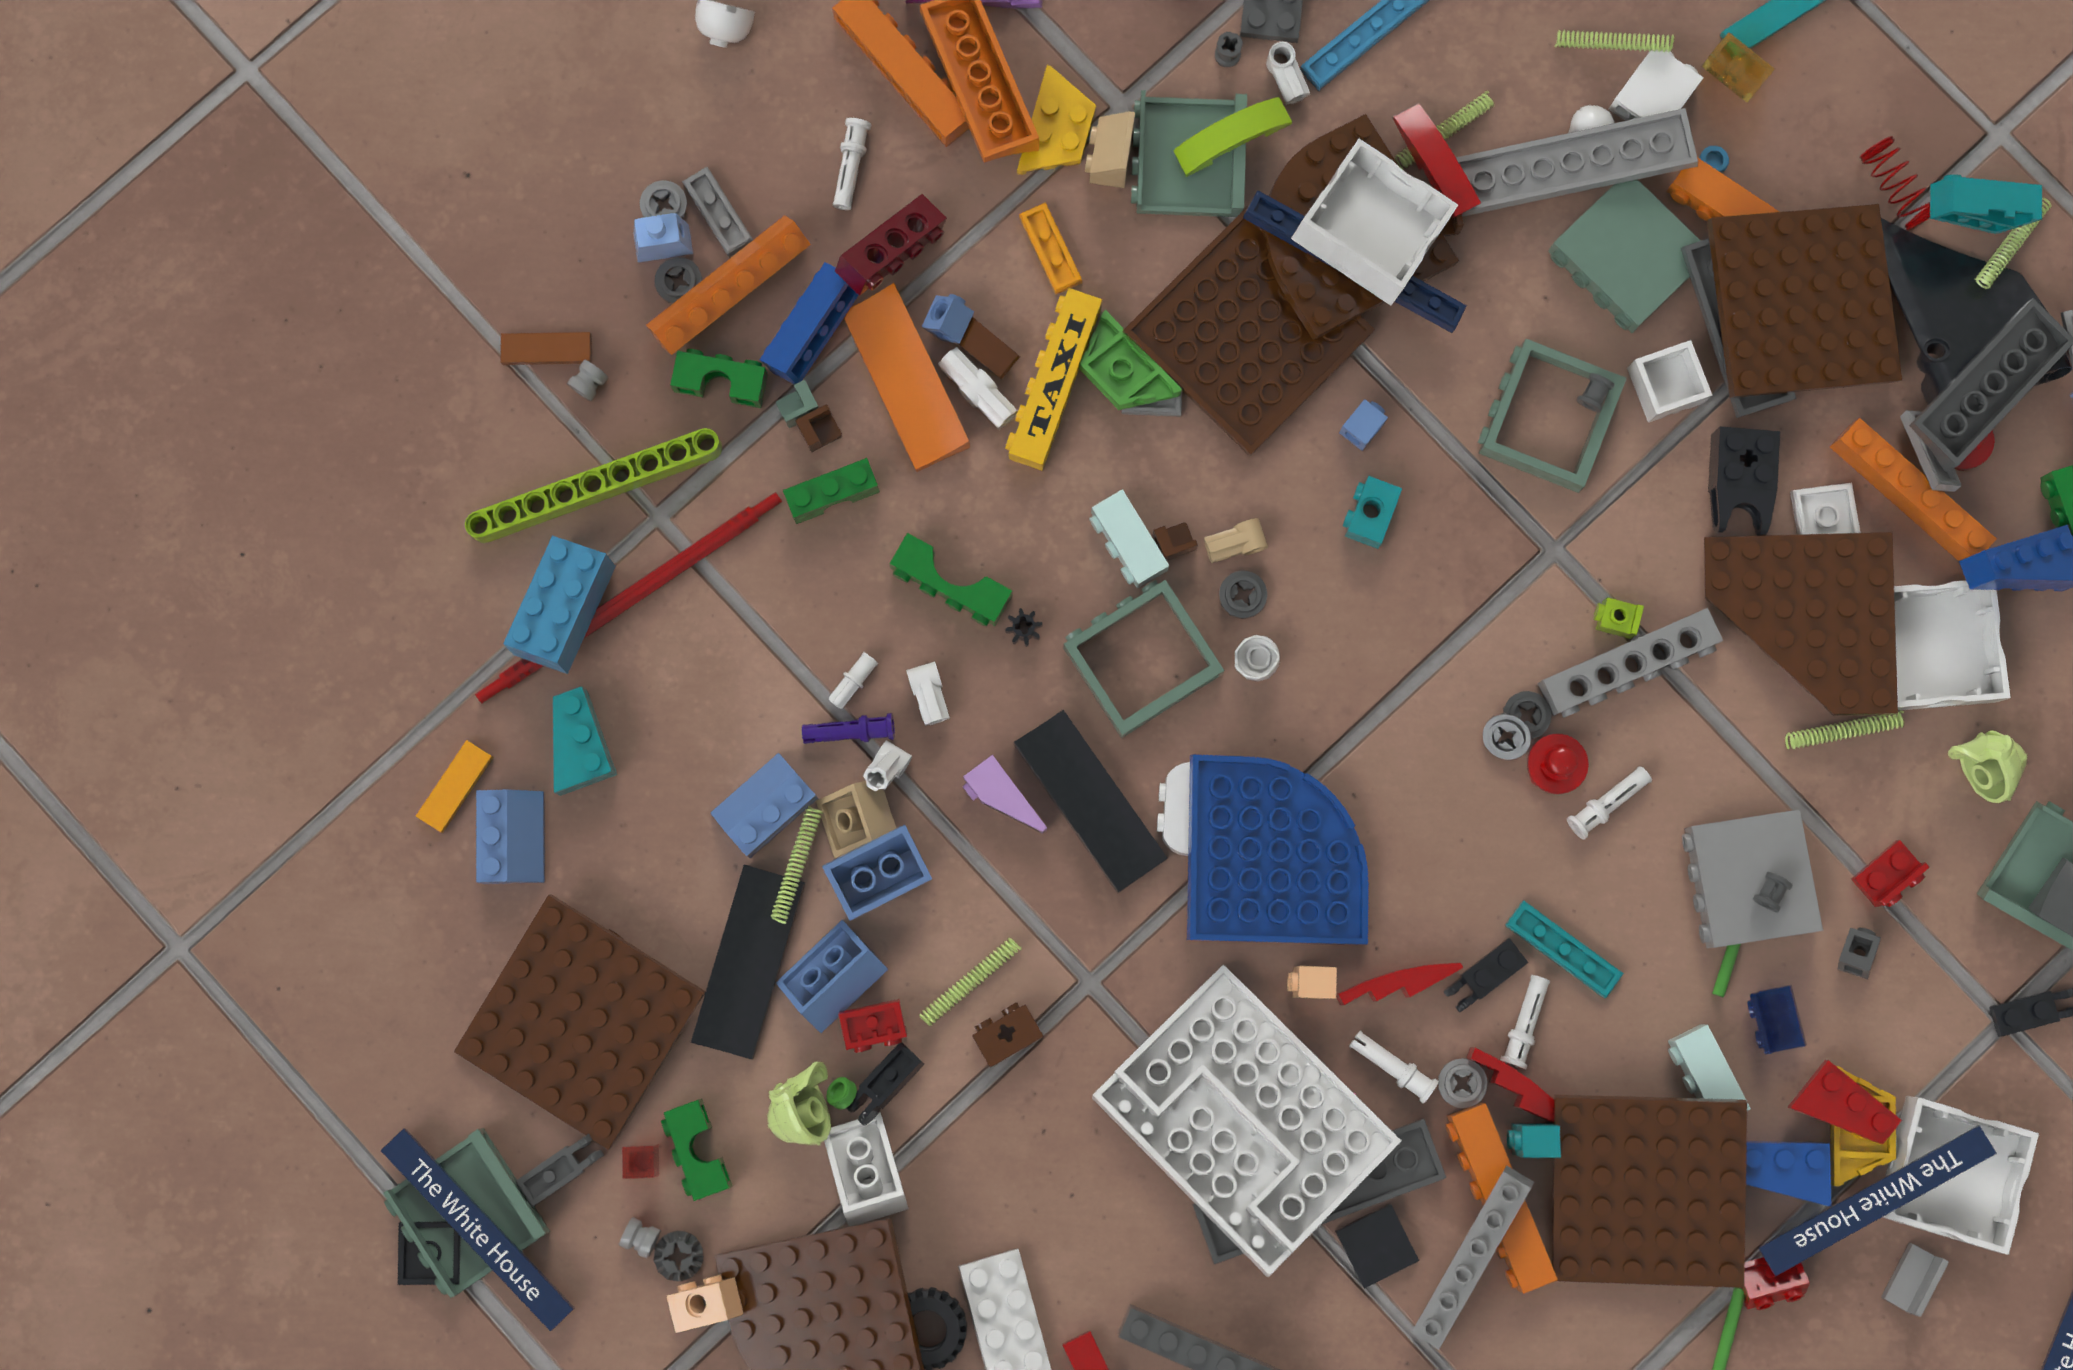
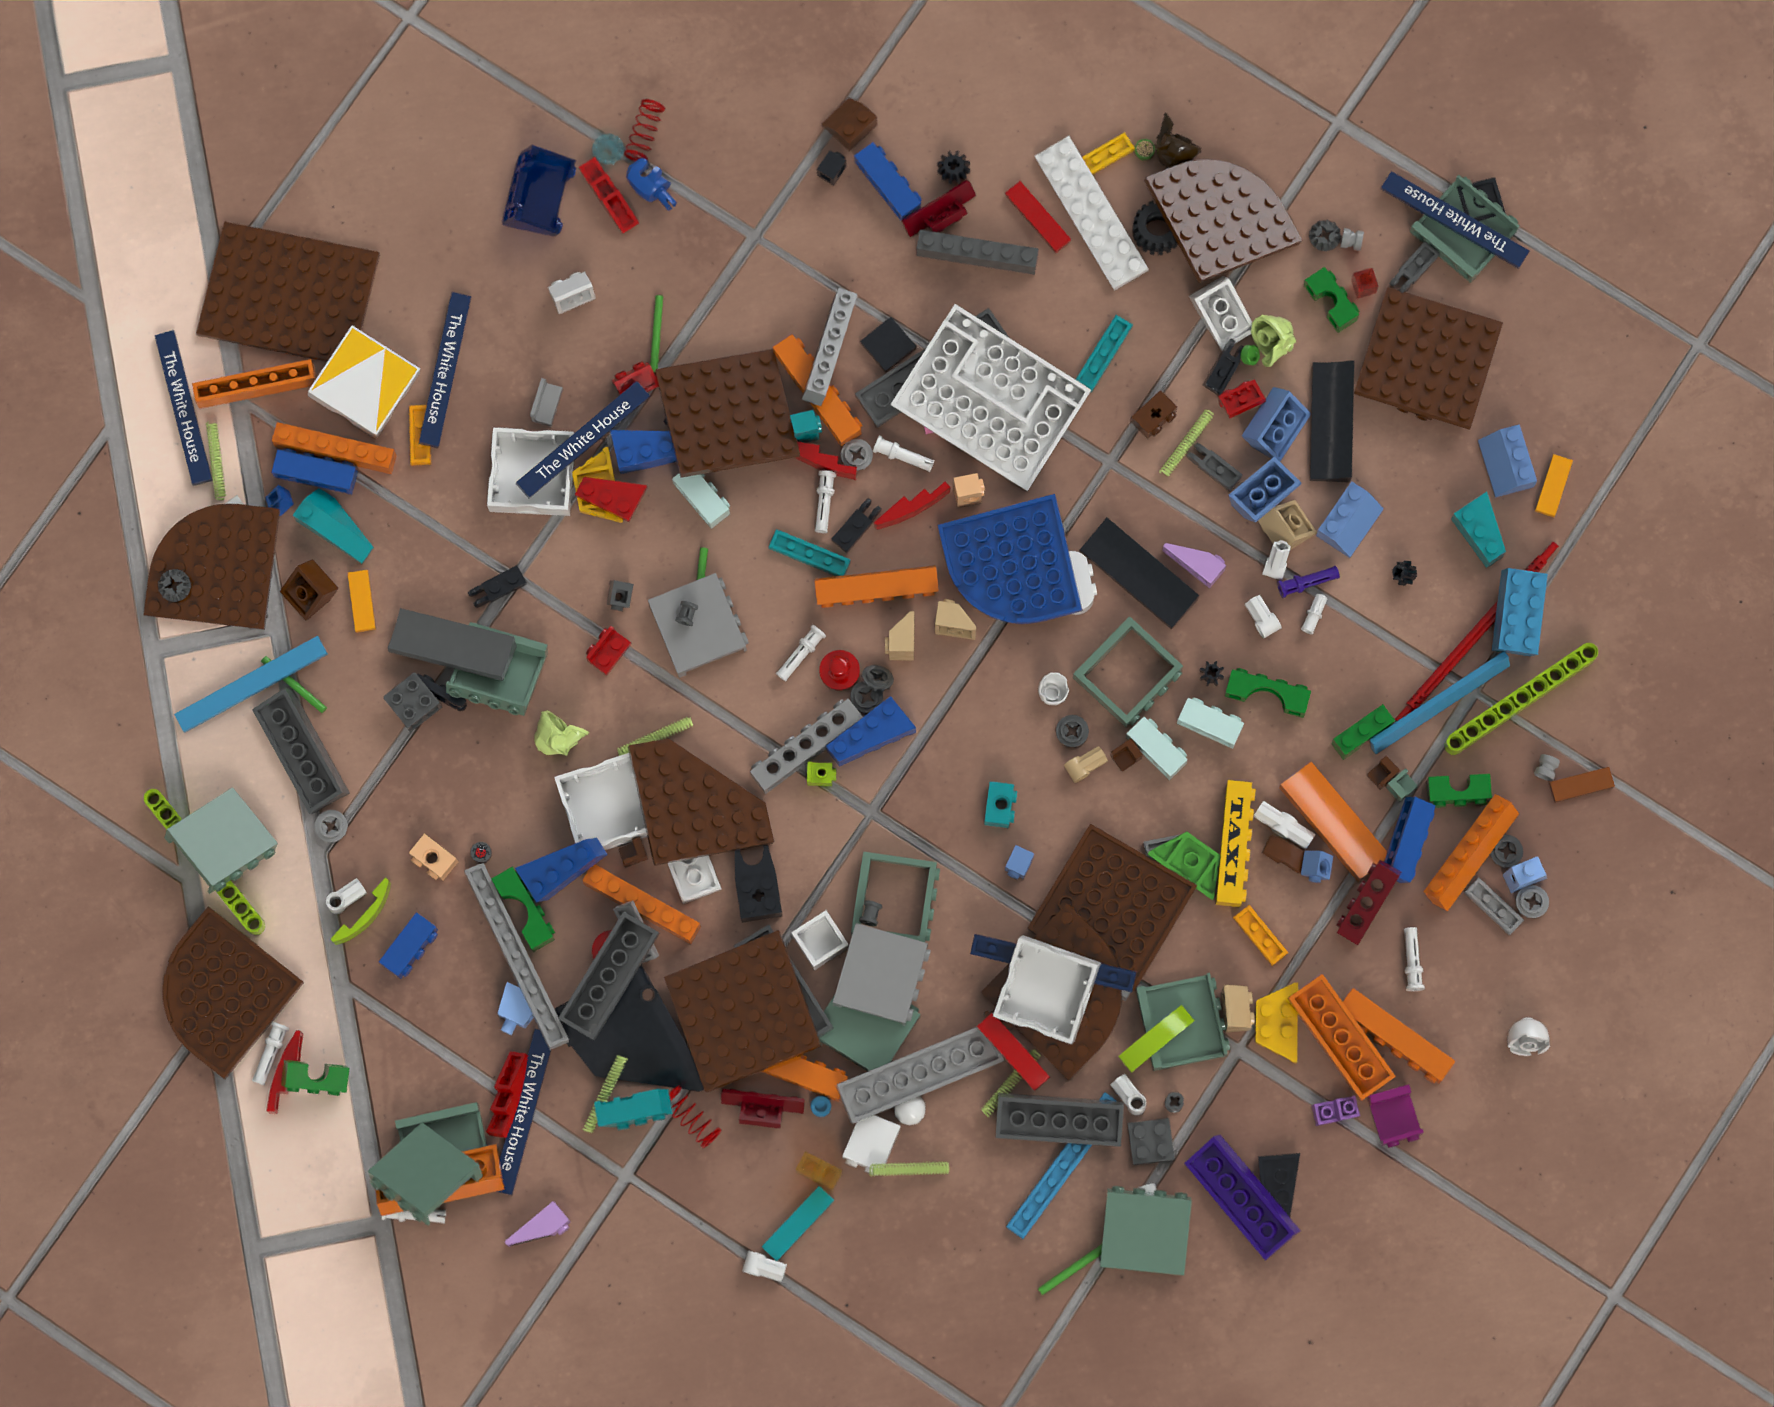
camera: 170 degrees right, 5 degrees down
(688, 1306) = (1300, 208): light nougat brick -> none
(707, 706) = (1404, 573): none -> black gear
(709, 508) = (1439, 702): none -> dark azure tile
(787, 877) = (1315, 498): yellowish green piece -> none
(936, 932) = (1215, 467): none -> dark grey hinge
(1043, 557) = (1210, 722): none -> light aqua brick
(1057, 1152) = (1104, 352): none -> teal tile
(1380, 790) = (953, 621): none -> tan slope
(1392, 61) = (1059, 1119): none -> dark grey arch
(1460, 778) = (901, 639): none -> tan slope
(1479, 873) = (876, 585): none -> orange brick
(1527, 659) = (876, 729): none -> blue wedge
(1601, 300) = (881, 974): none -> light grey panel
(1776, 1019) = (665, 540): clear blue bracket -> none
(1797, 169) = (760, 1108): none -> dark red bracket
(1910, 568) = (633, 853): none -> reddish brown panel

